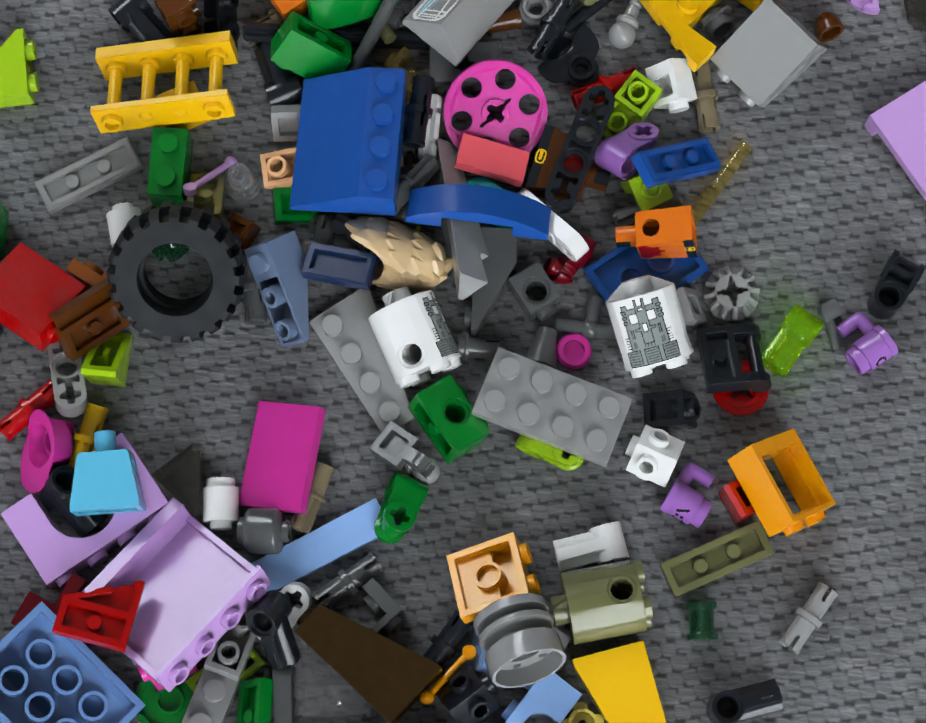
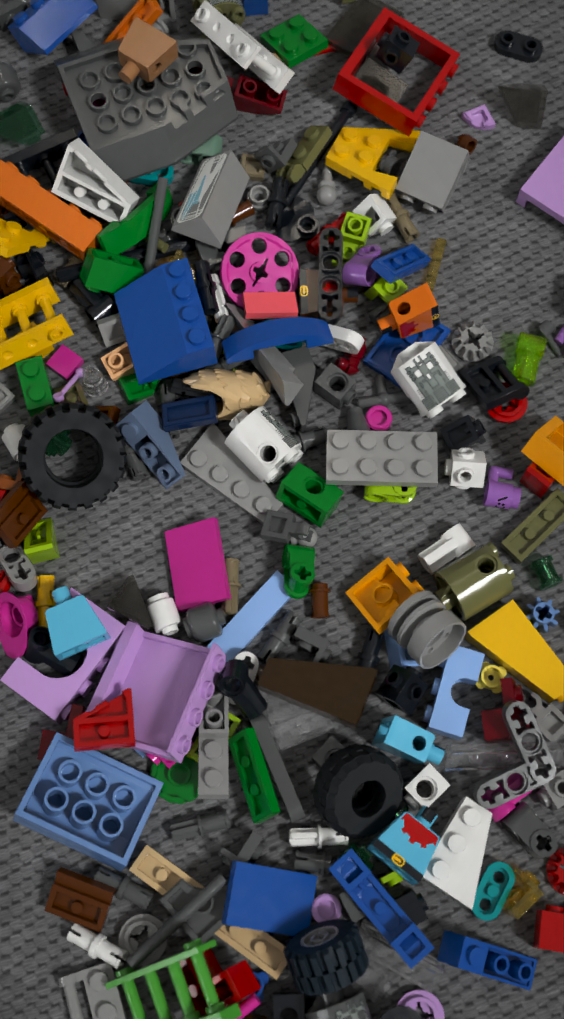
camera: 25 degrees left, 5 degrees down
(216, 143) = (64, 362): none -> dark pink tile
(412, 554) = (319, 600): none -> reddish brown pin
(468, 653) = (389, 656): light orange hinge -> none
(683, 674) = (548, 616): none -> medium blue gear

